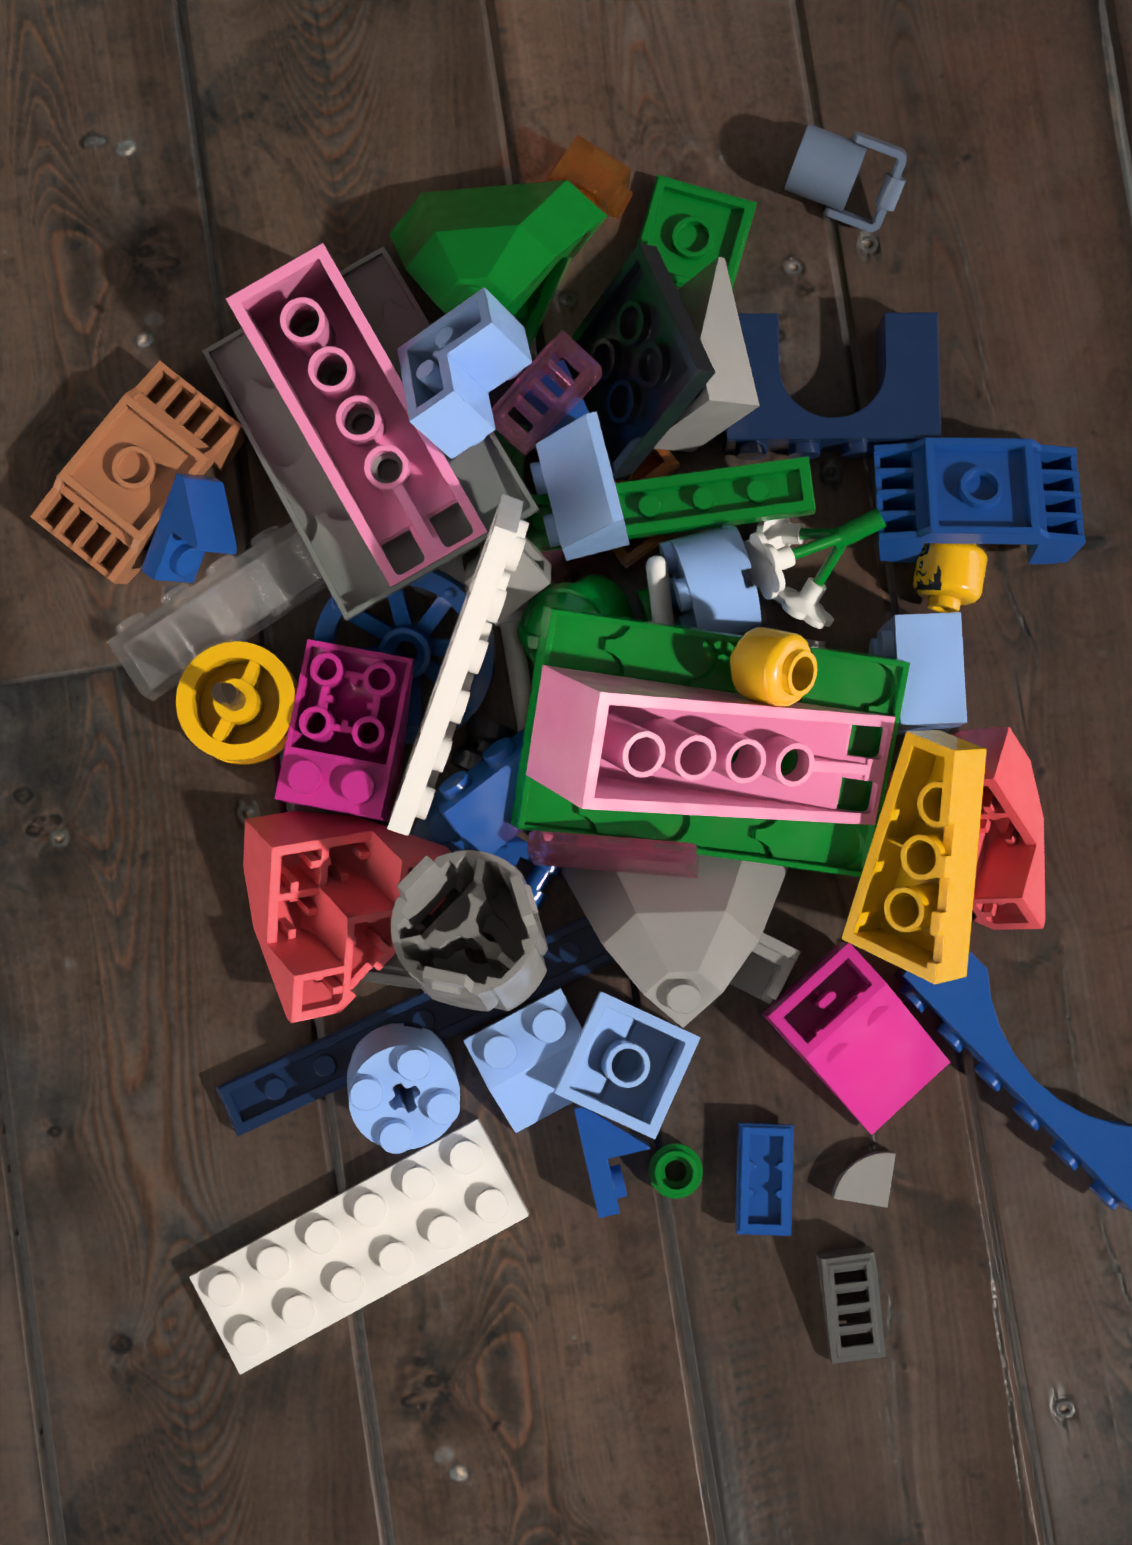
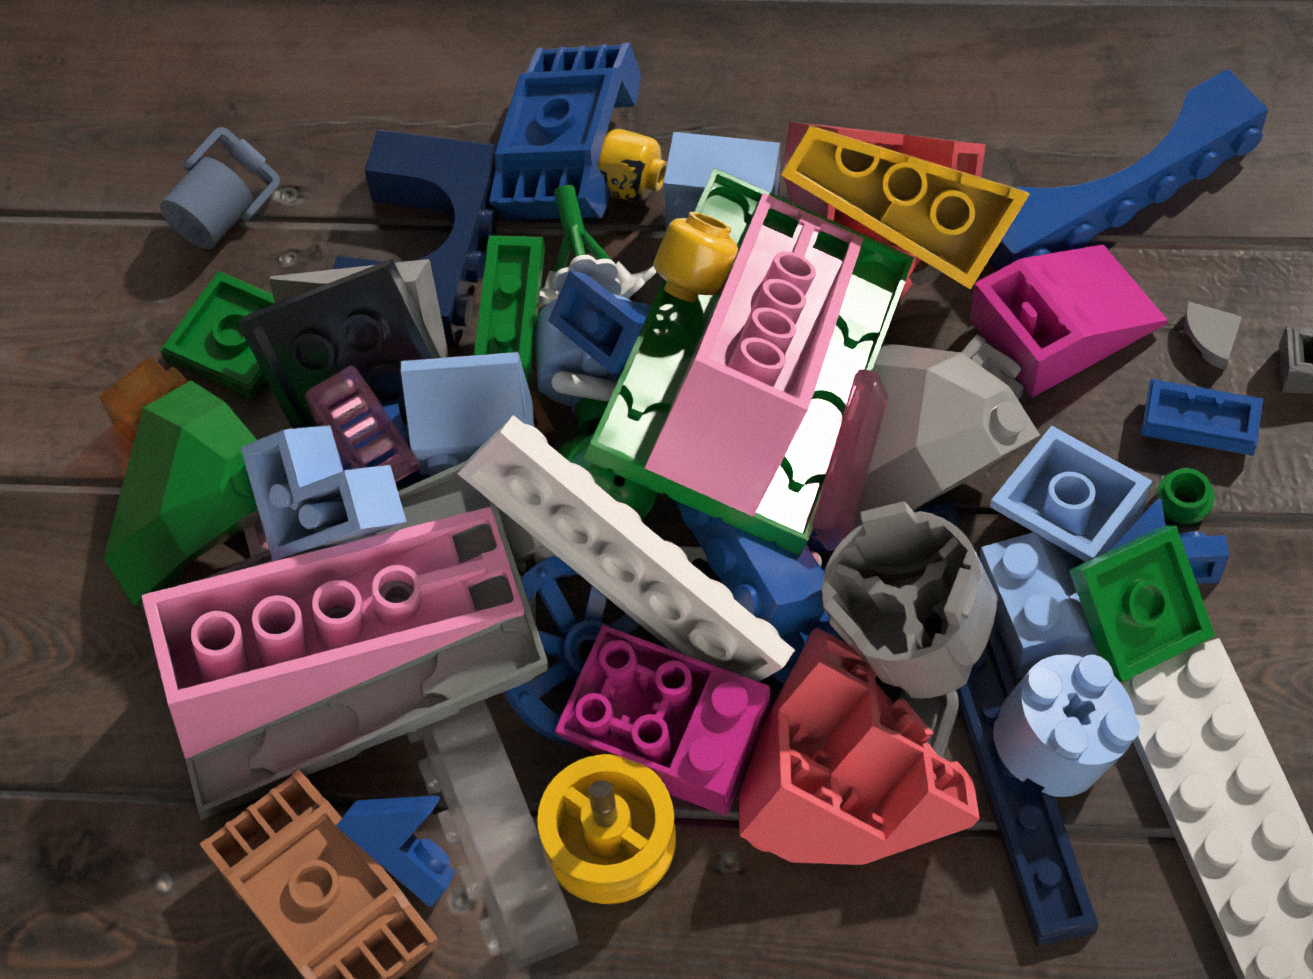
camera: 70 degrees left, 25 degrees down
(529, 1143) = (1142, 602): none -> green plate
(696, 590) = (598, 320): none -> blue slope

